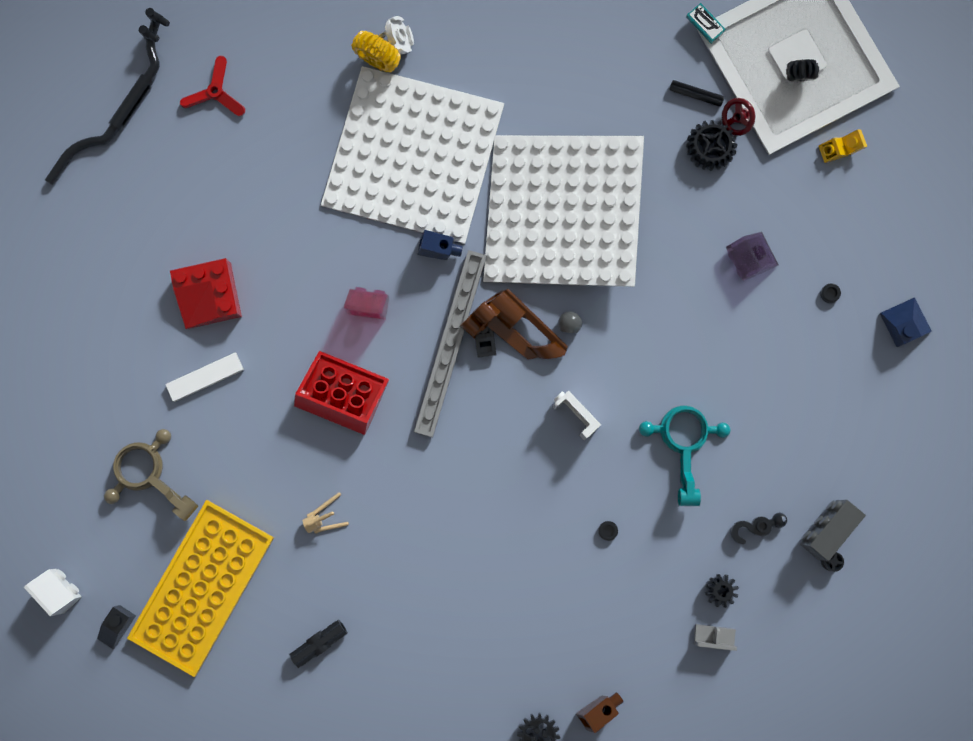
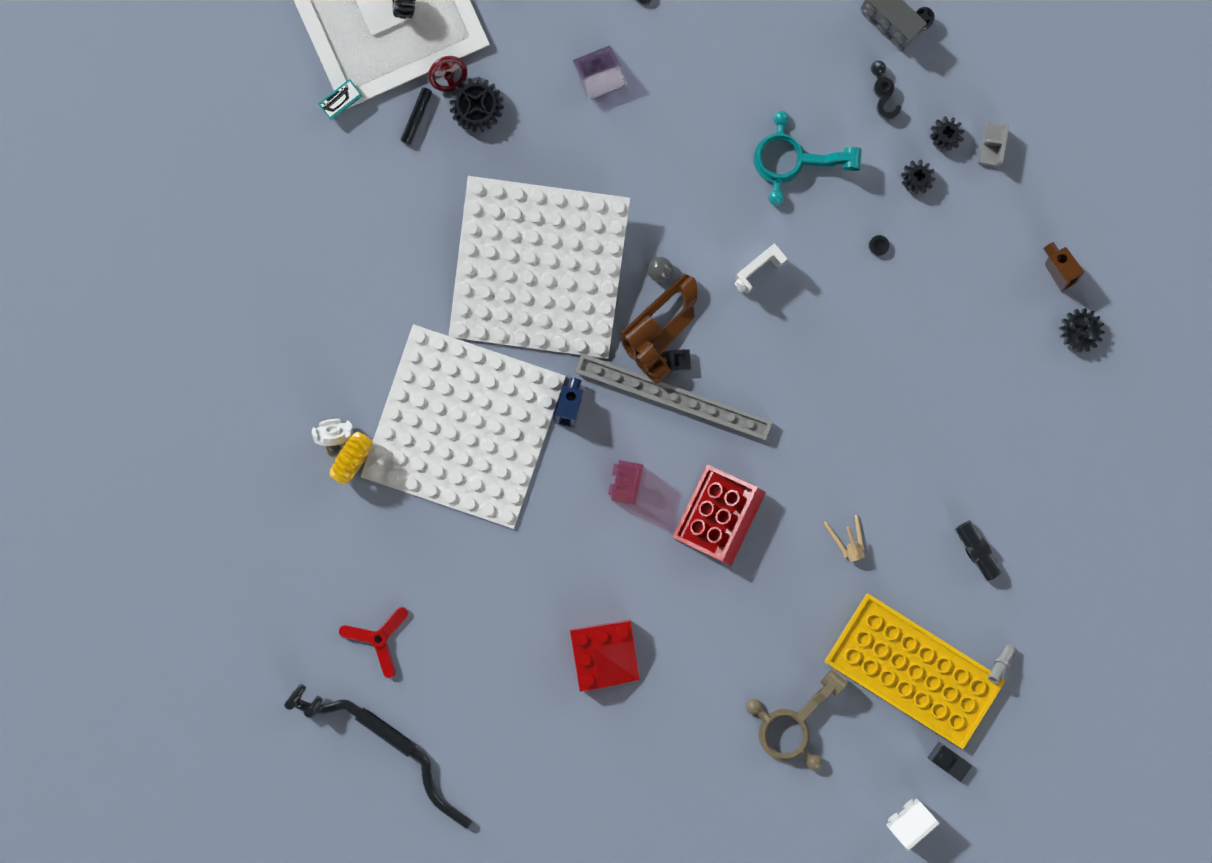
camera: 95 degrees left, 5 degrees up
(204, 377) = (693, 660): white tile -> none
(209, 672) = (1002, 664): none -> light grey pin
(672, 559) = (923, 172): none -> black gear

